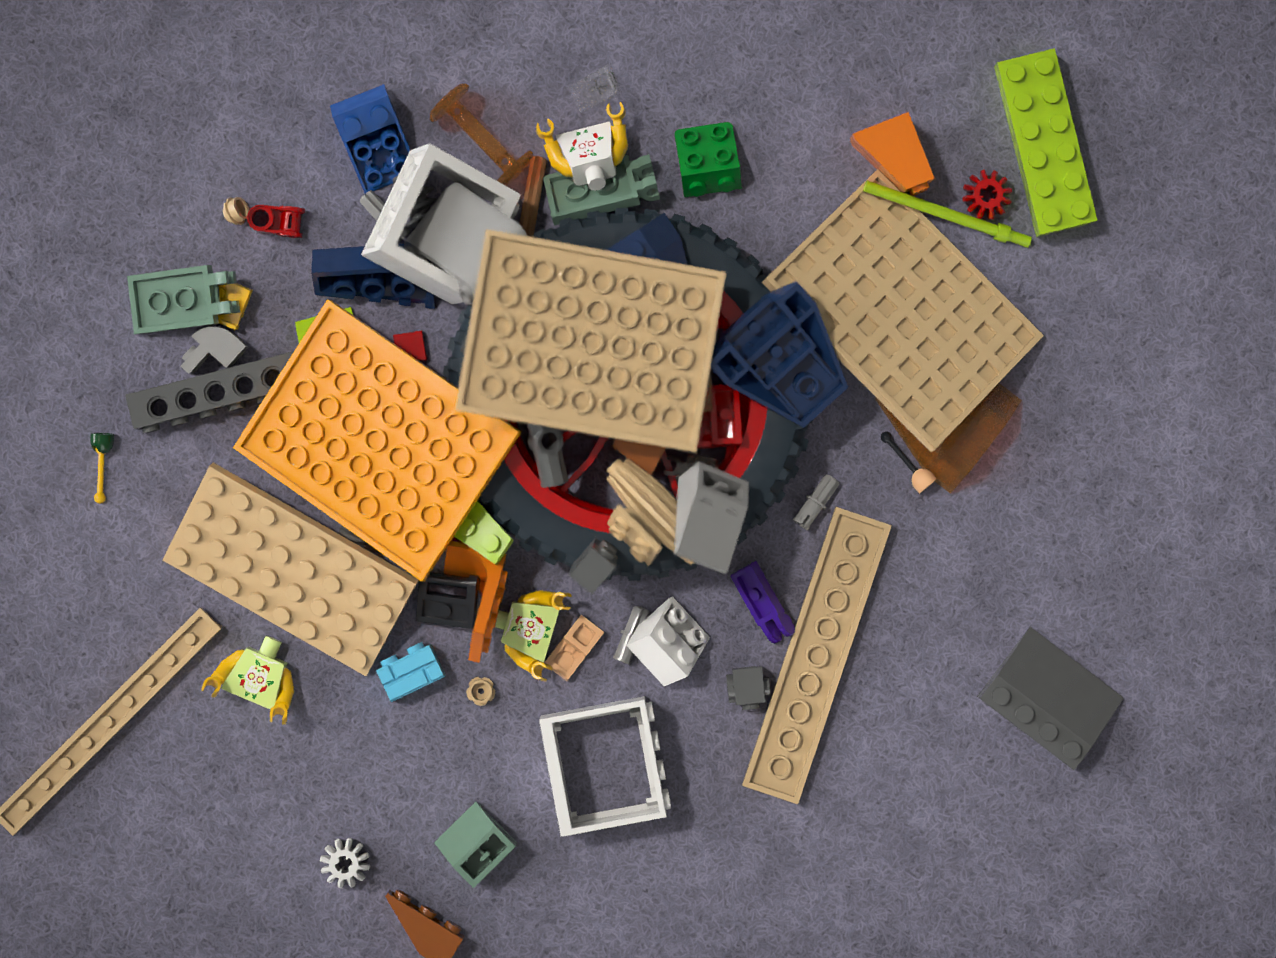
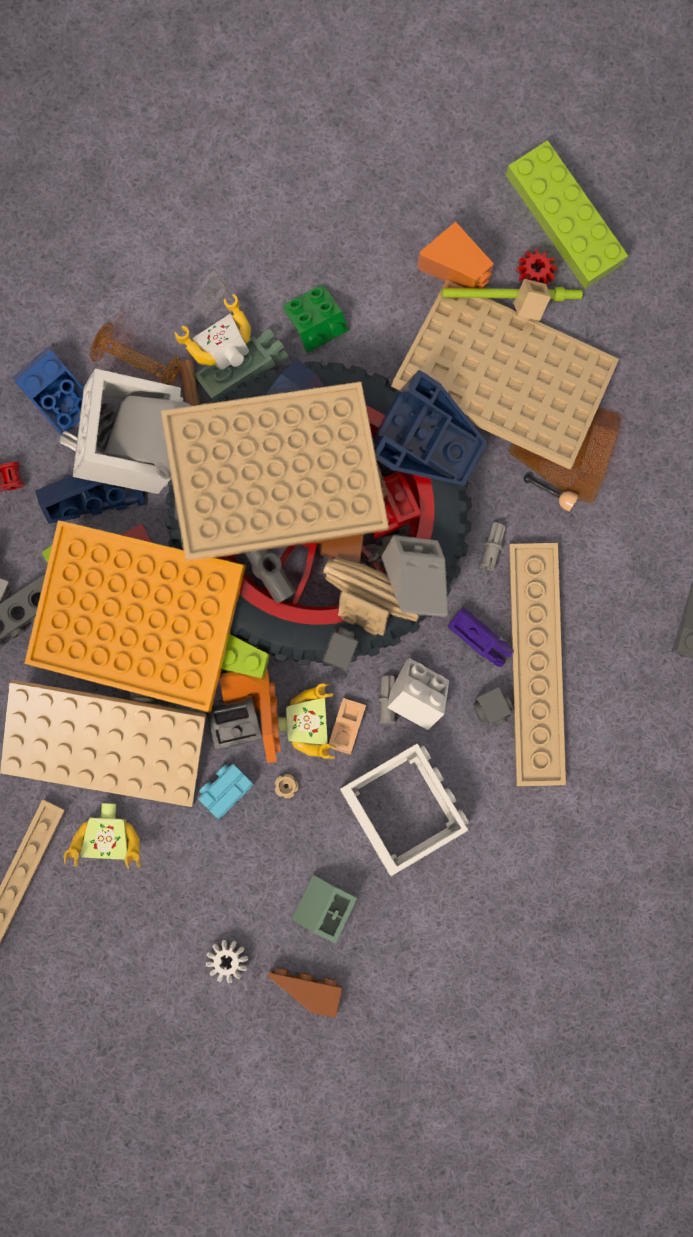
camera: 25 degrees left, 5 degrees down
(966, 232) = (532, 300): none -> tan brick

